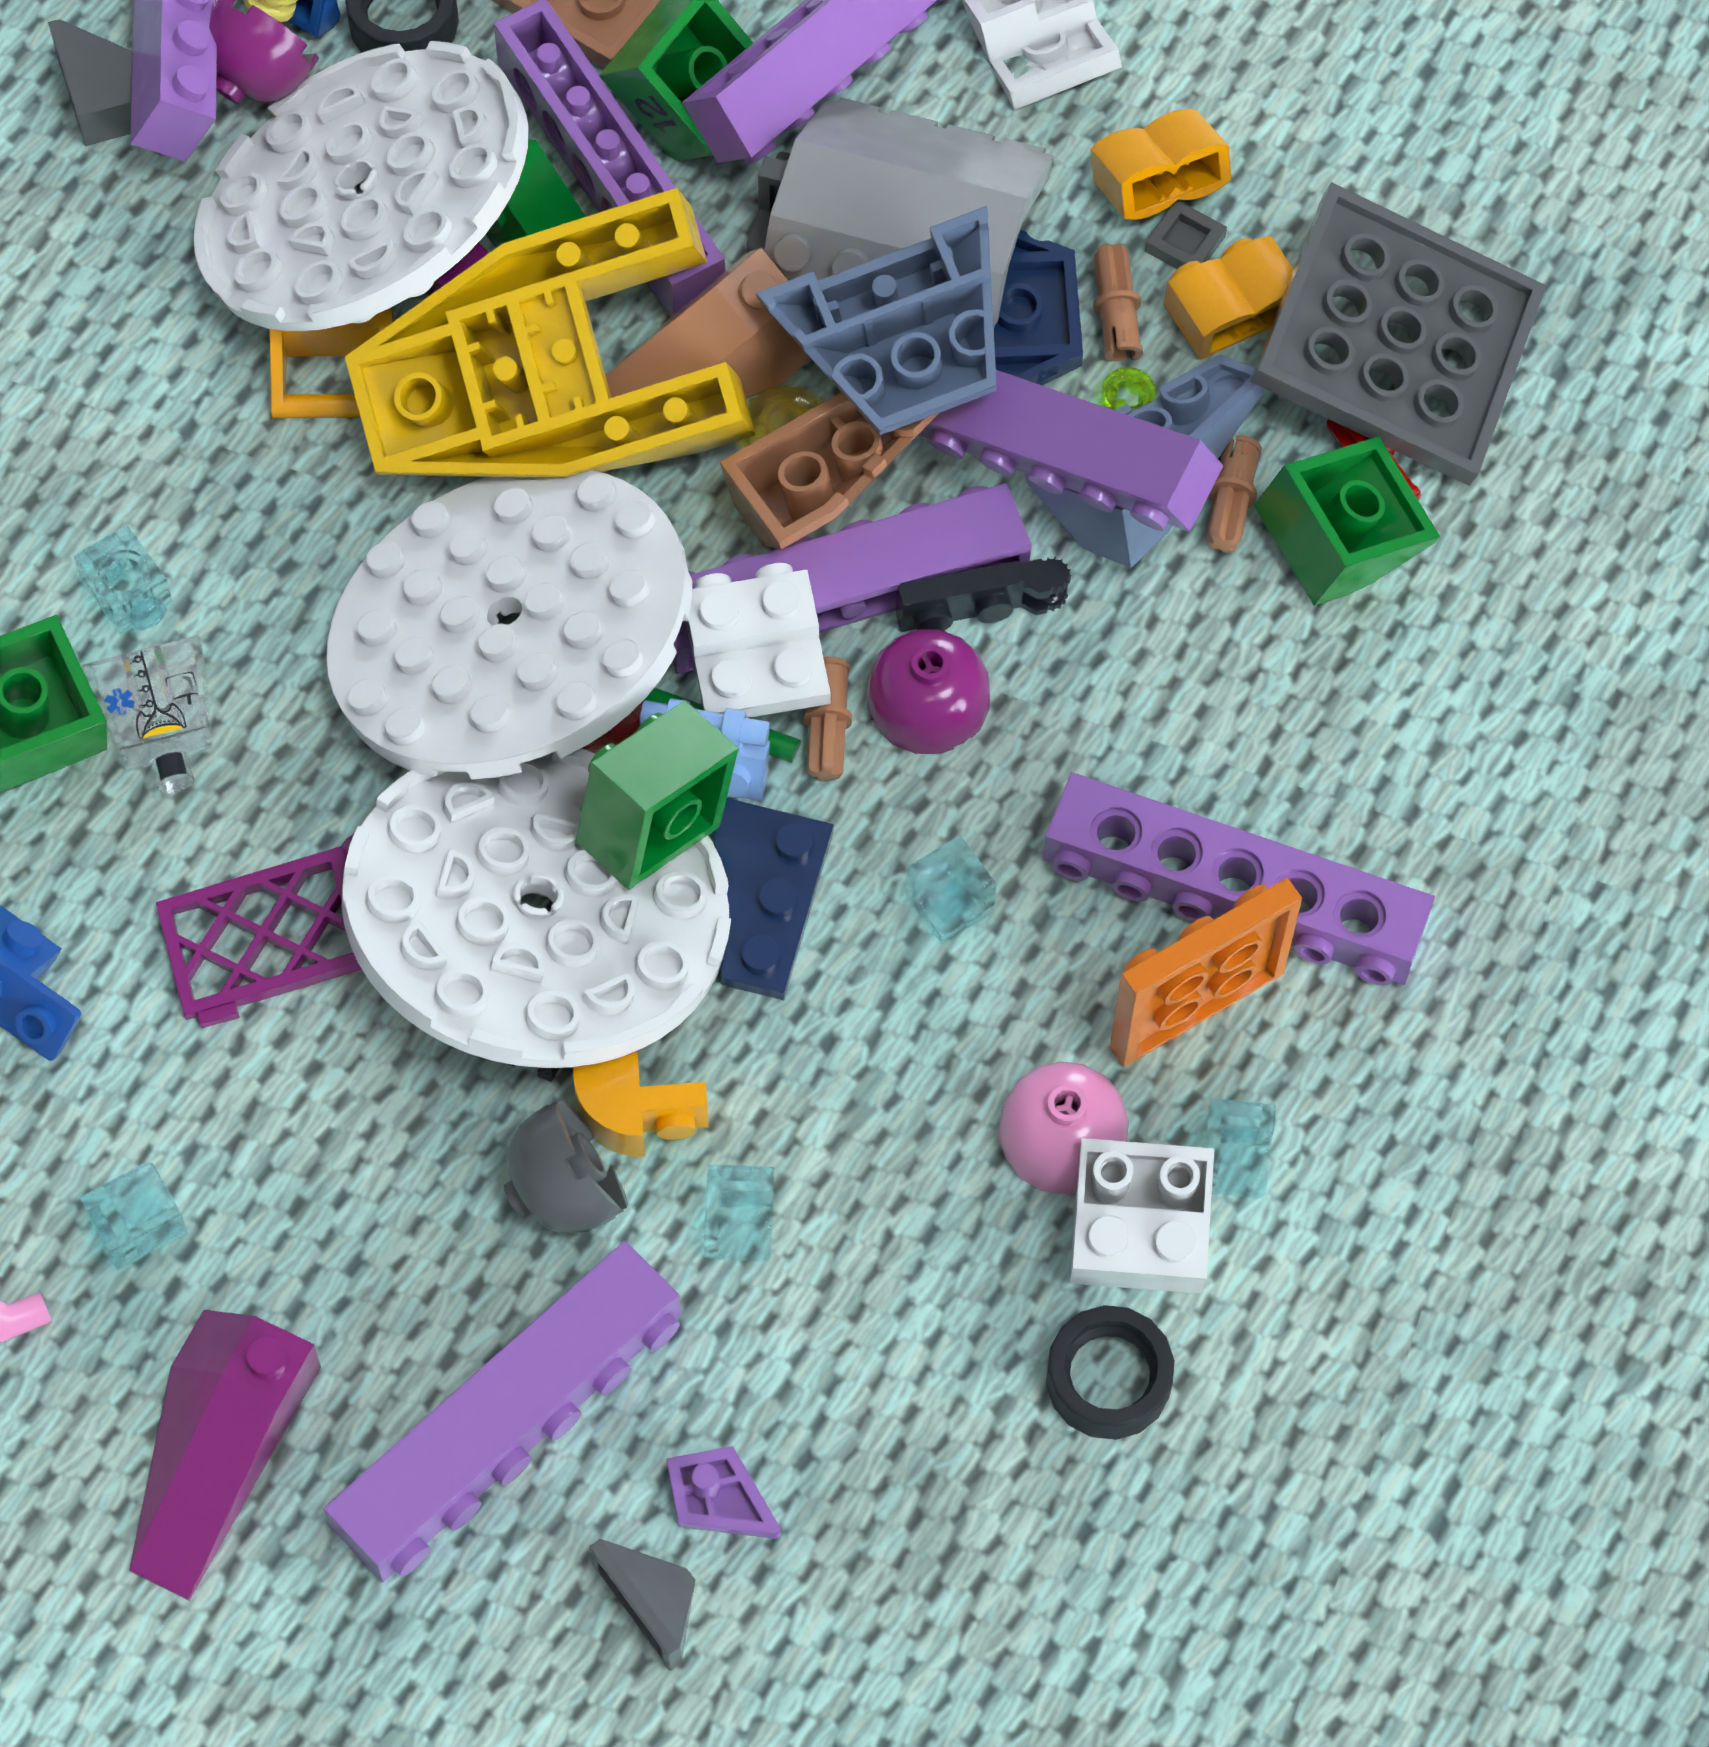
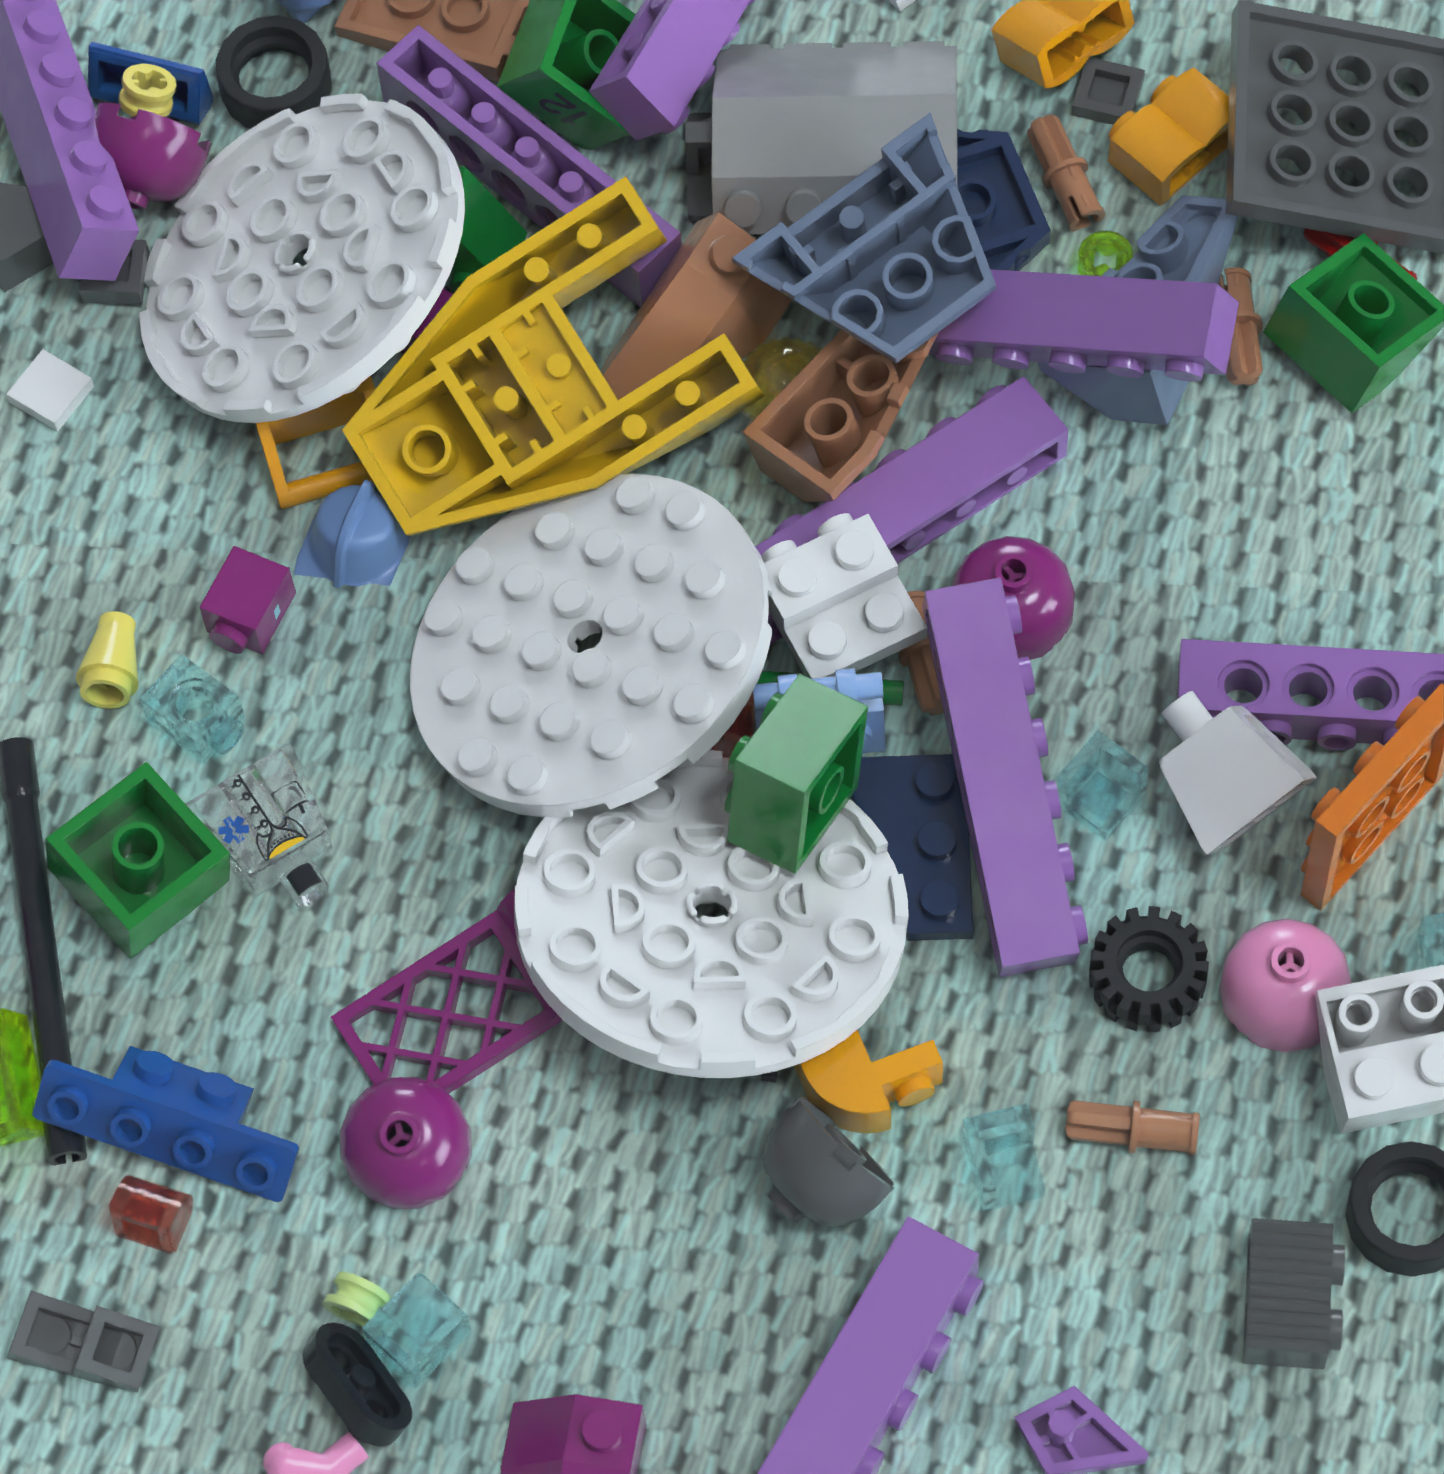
camera: 10 degrees left, 0 degrees up
(62, 517) = (110, 664): none -> light yellow cone
(65, 1257) = (357, 1384): none -> black plate
(86, 1168) = (355, 1298): none -> yellowish green bush
(95, 248) = (50, 390): none -> white tile
(201, 166) = (129, 284): none -> dark grey plate
(203, 1054) = (425, 1166): none -> magenta cylinder
(208, 494) = (247, 601): none -> magenta brick
(328, 464) = (353, 539): none -> medium blue piece
(853, 854) = (1002, 777): none -> medium lavender brick
(872, 1219) = (1132, 1126): none -> nougat axle
(941, 1040) = (1155, 934): none -> black tyre
(965, 1419) = (1290, 1294): none -> dark grey brick
(983, 593) = (1033, 489): black hinge -> none
(1072, 909) = (1227, 771): none -> white torso

